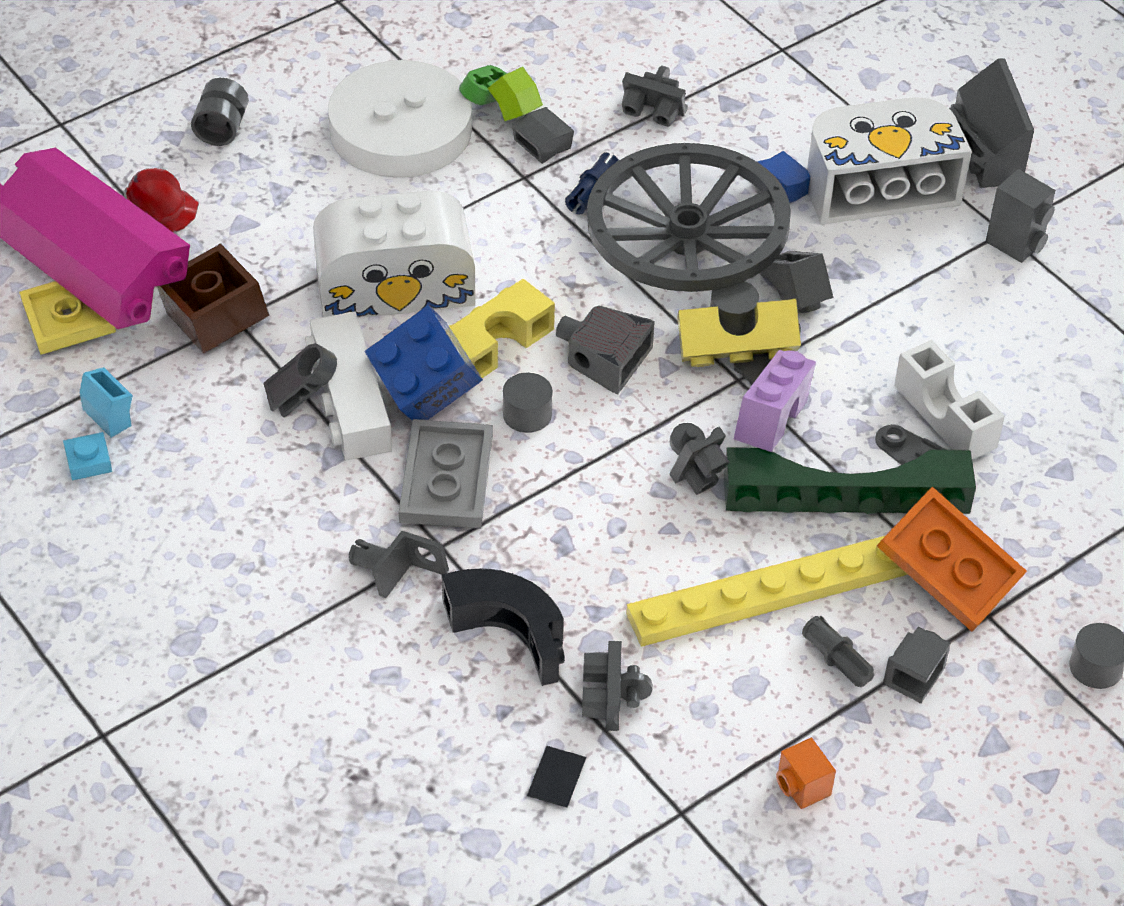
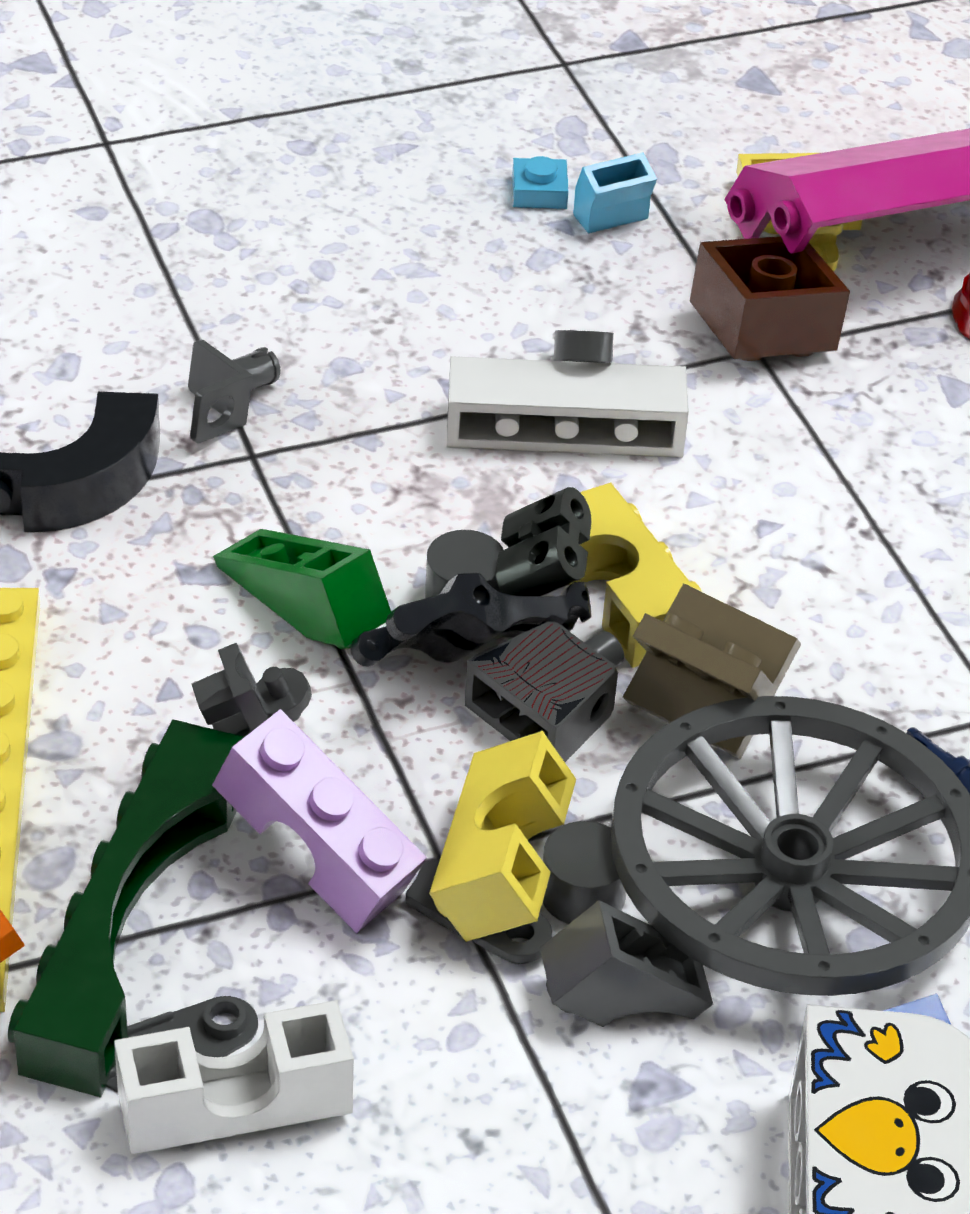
camera: 105 degrees right, 5 degrees down
(393, 254) = (789, 476): white brick -> none
(423, 365) = (546, 446): blue brick -> none
(446, 474) = (364, 469): light grey plate -> none
(514, 348) = (544, 545): none -> pearl dark grey piece
(567, 472) = (311, 583): none -> green slope
(572, 268) = (706, 657): none -> dark tan bracket
(585, 376) = (467, 617): none -> black animal

